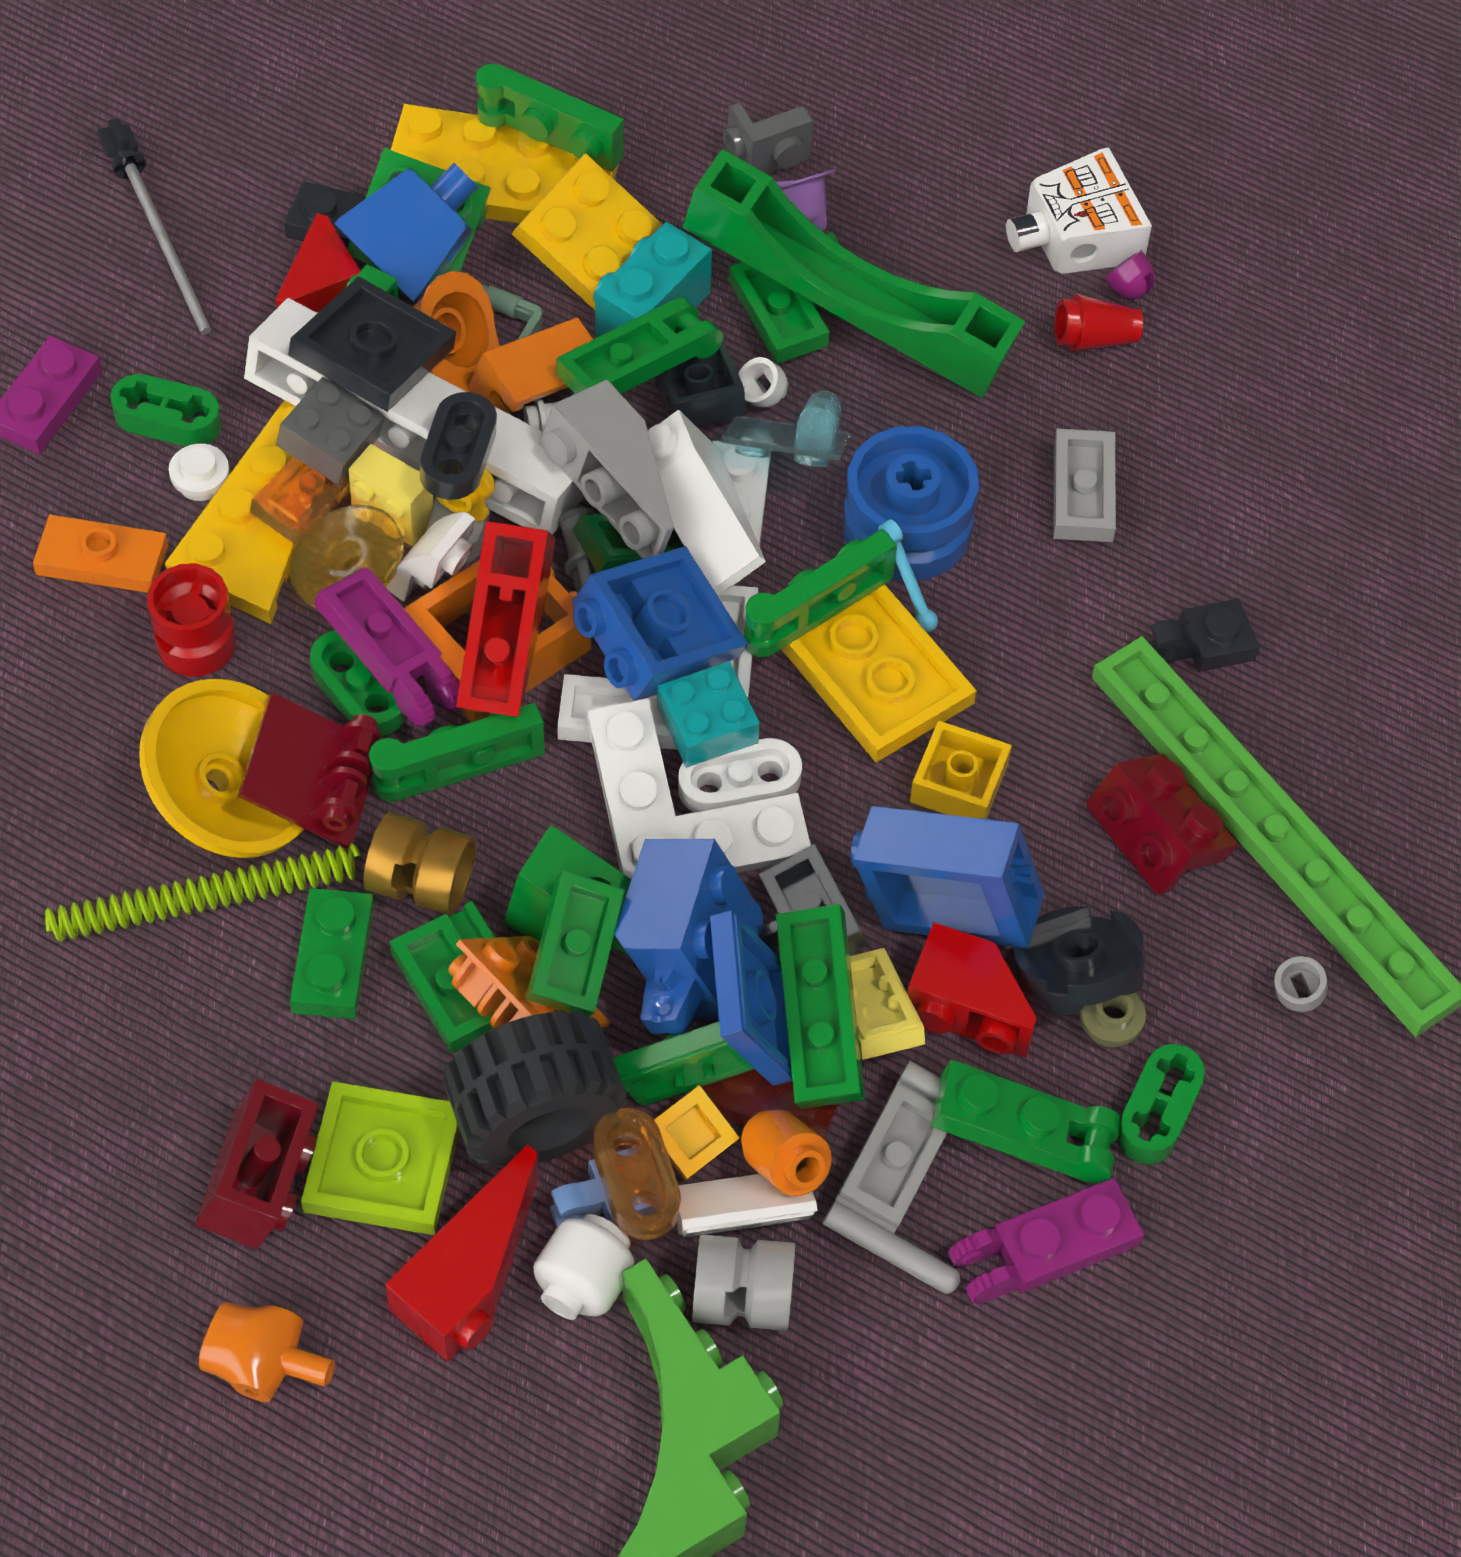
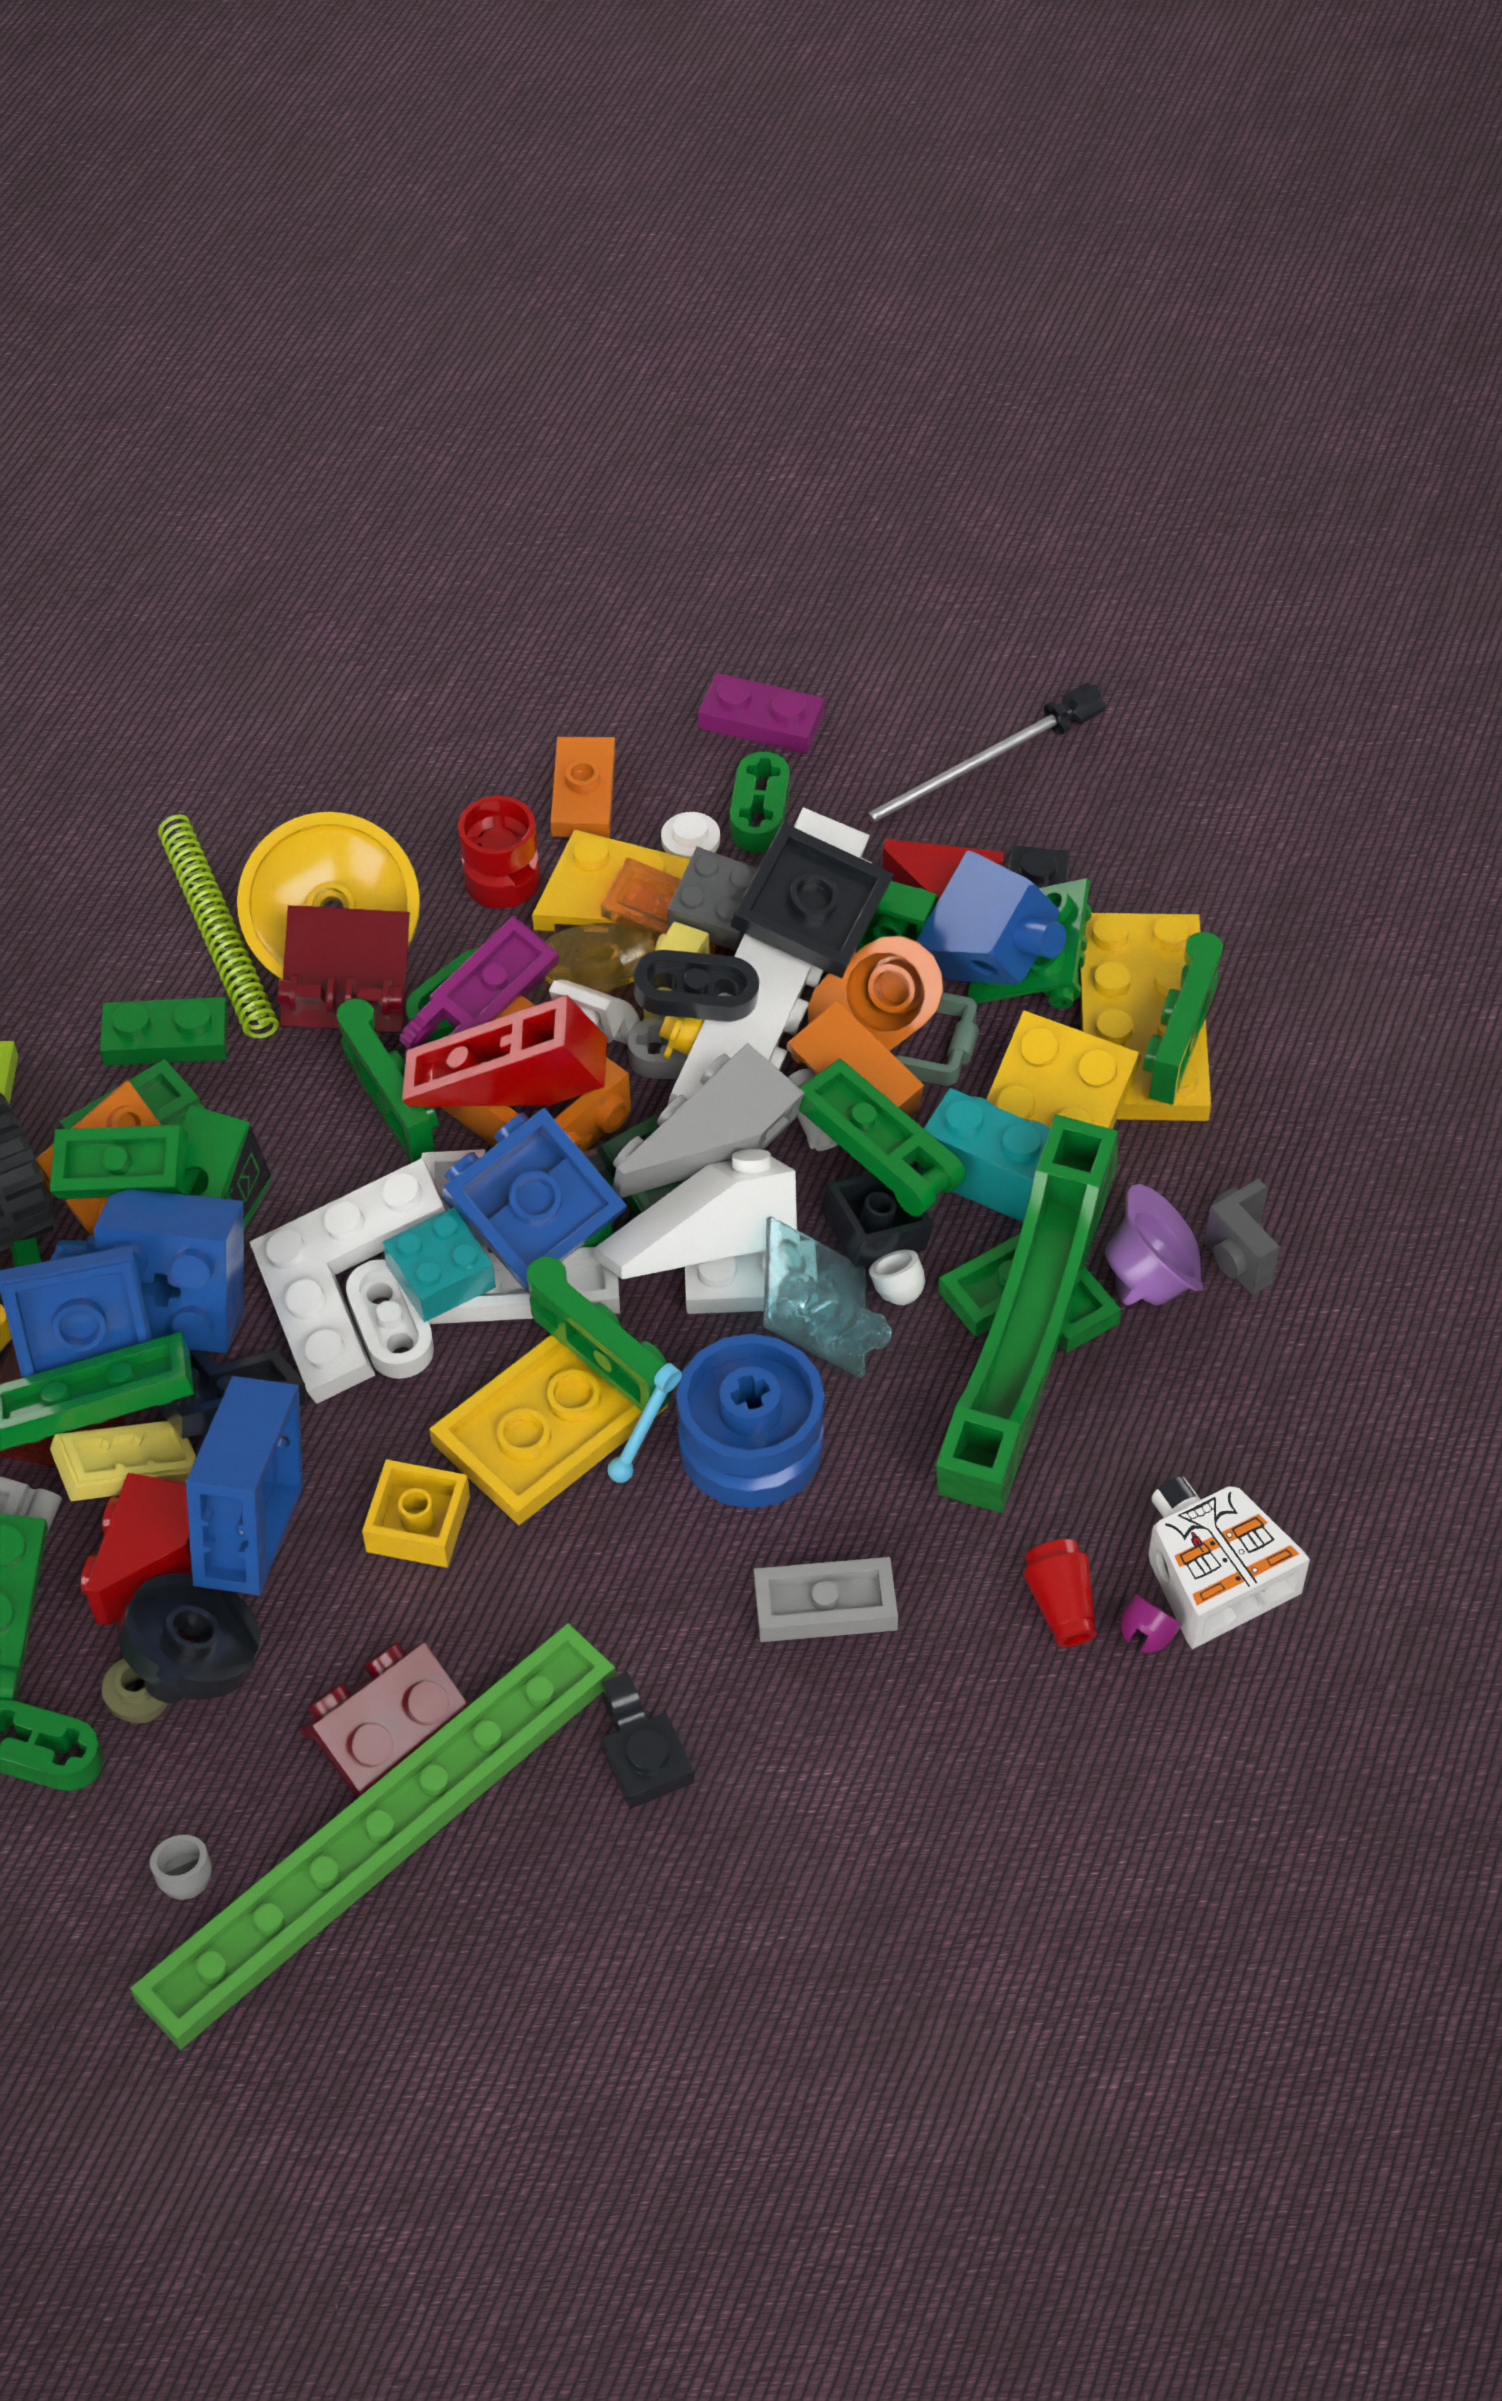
camera: 85 degrees right, 5 degrees down
(419, 863) = (250, 1066): pearl gold wheel -> none

